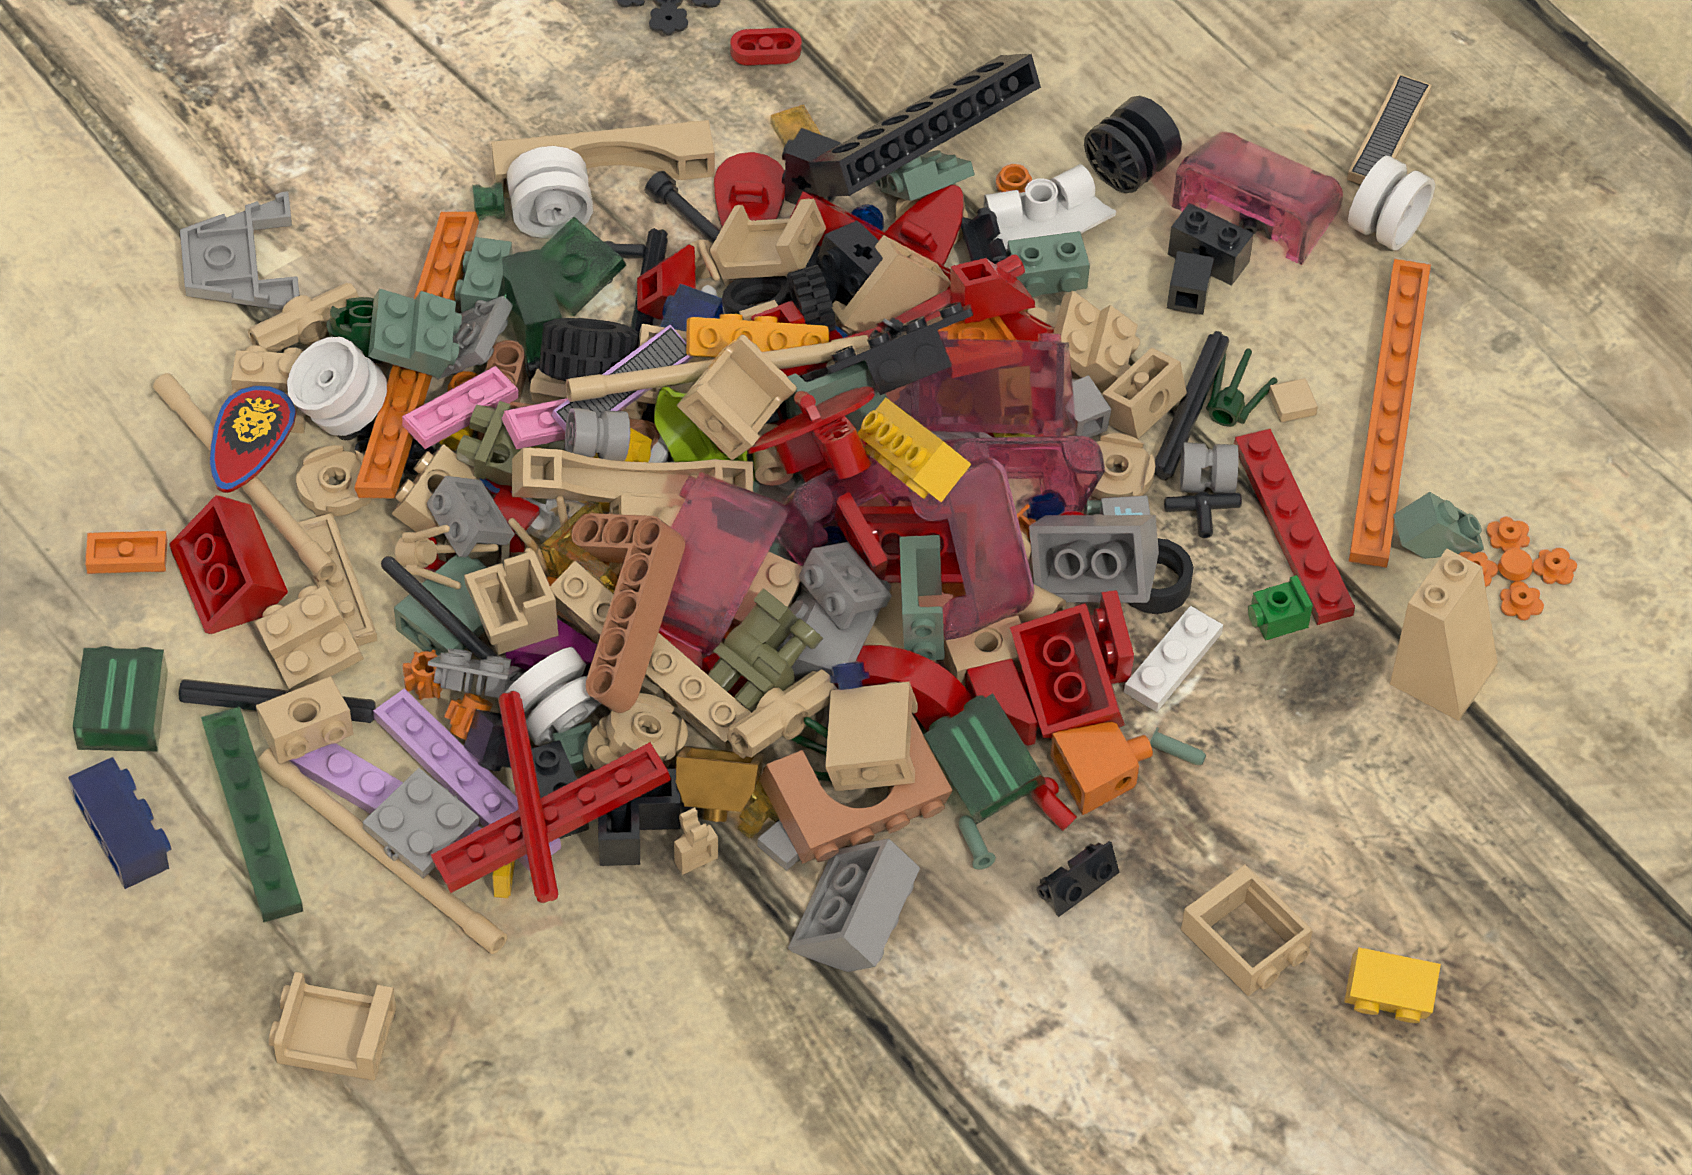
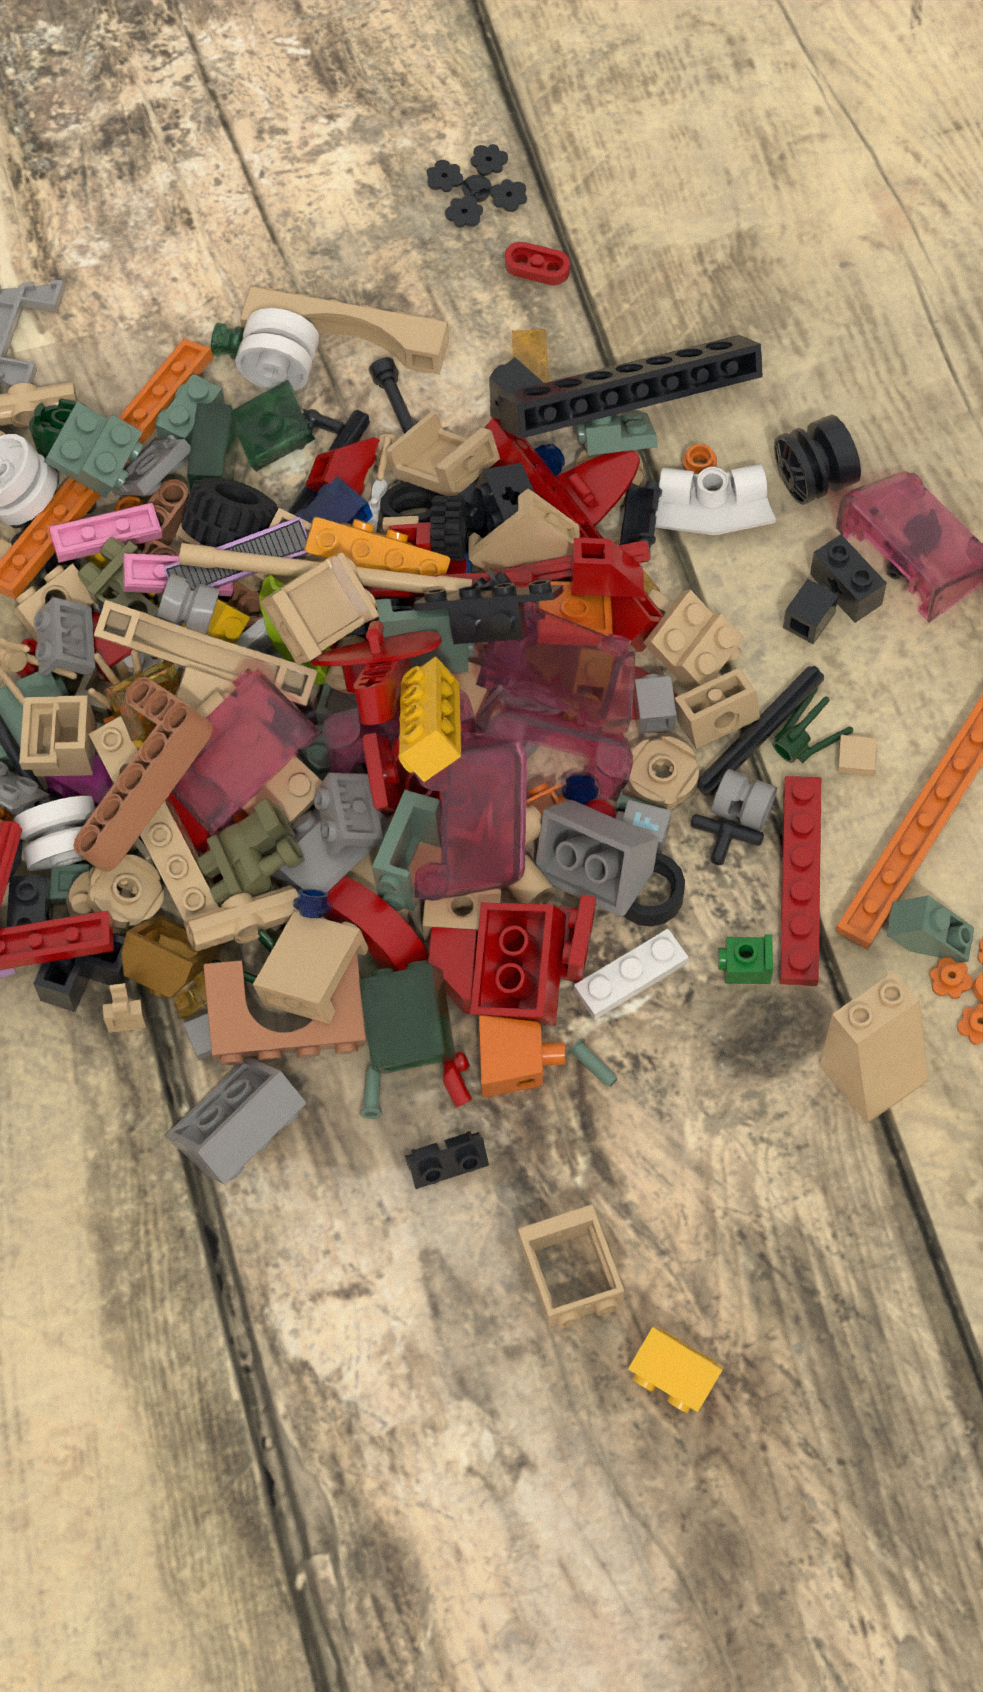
camera: 25 degrees right, 10 degrees up
(749, 181) = (461, 396): red shield -> none
(1052, 263) = (690, 552): sand green brick -> none

